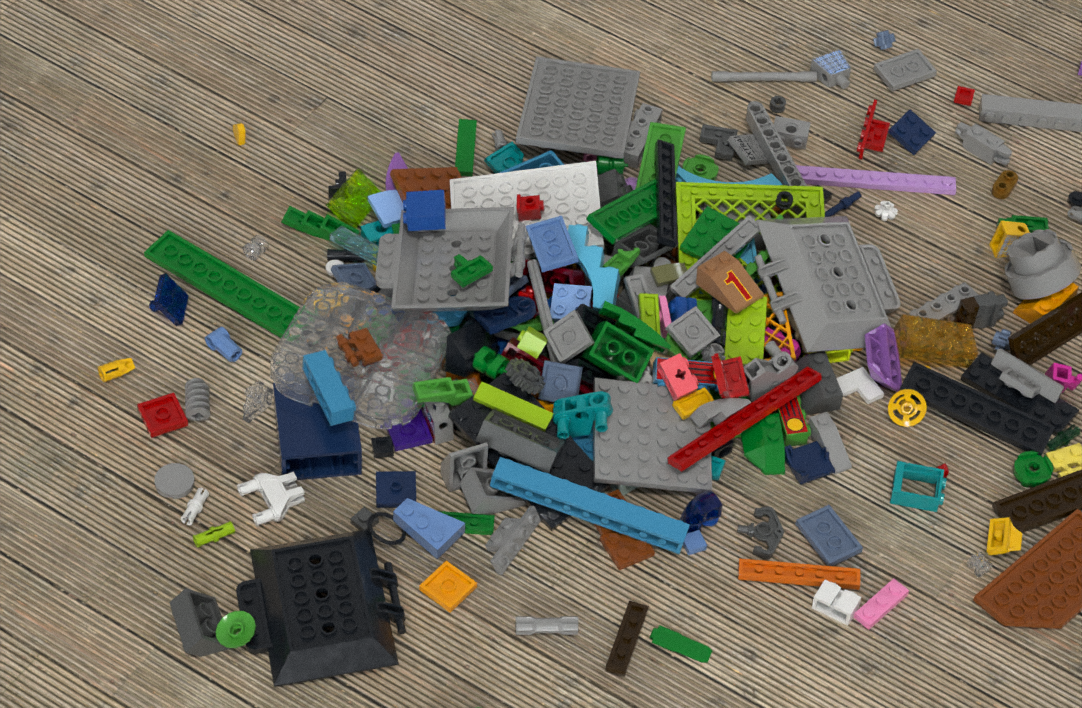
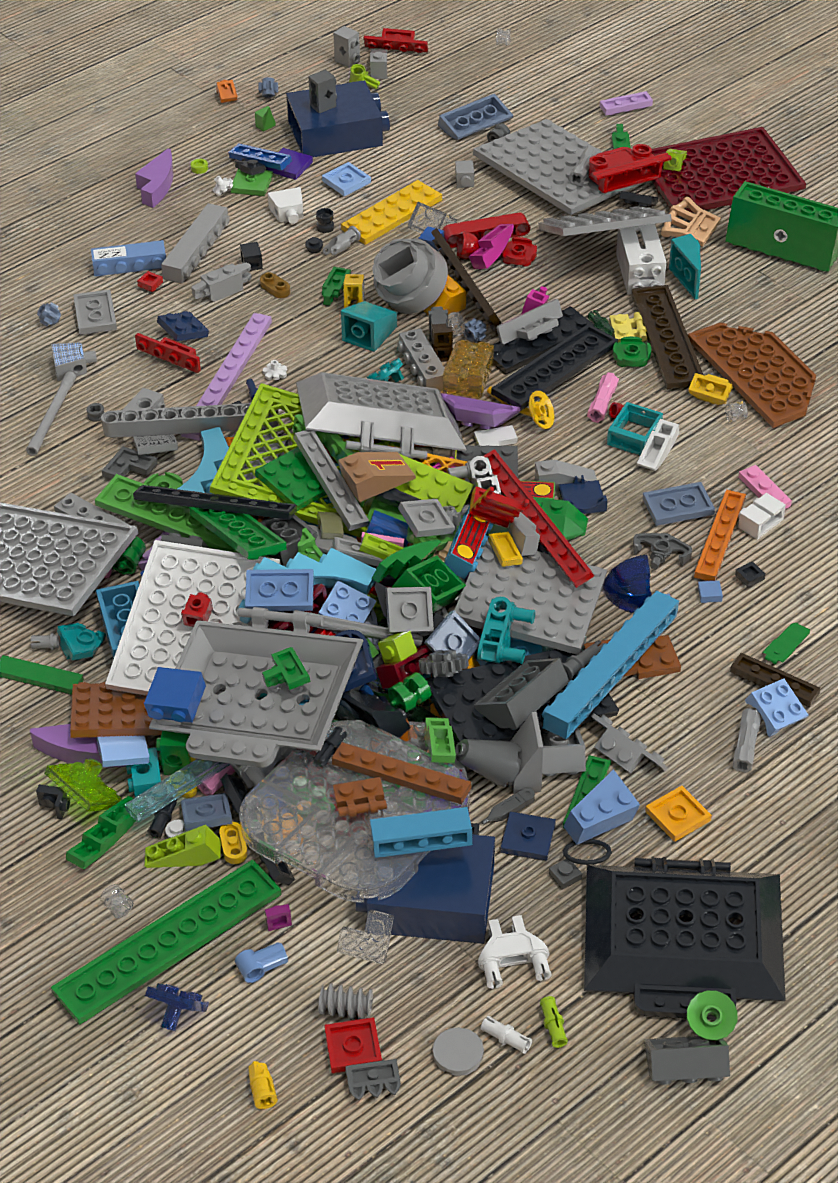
camera: 70 degrees left, 5 degrees down
(136, 431) = (373, 1078): none -> dark grey plate
(266, 344) = (278, 917): none -> magenta plate
(313, 271) = (186, 849): none -> lime slope
(393, 369) = (401, 773): none -> dark orange plate
(408, 320) = (329, 747): none -> black axle
(425, 473) = (513, 803): none -> dark grey piece
(447, 433) = (491, 759): none -> dark grey cone
(513, 406) = (476, 687): lime tile -> none
(575, 476) = (576, 663): none -> dark grey pin
(590, 640) = (777, 706): none -> light blue piece
(678, 366) = (481, 544): coral brick -> none
(724, 577) = (710, 591): none -> medium blue tile
(755, 603) = (750, 574): none -> black plate
(783, 205) = (269, 413): black bush -> none
(902, 509) = (658, 445): none -> white slope
(917, 287) = (388, 369): none -> teal plate
(967, 456) = (600, 404): none -> bright pink axle
(974, 258) = (367, 325): none -> teal slope
(987, 71) = (128, 258): none -> medium blue brick
(1009, 323) = (457, 323): none -> clear wheel
(1032, 156) = (251, 254): none -> black brick

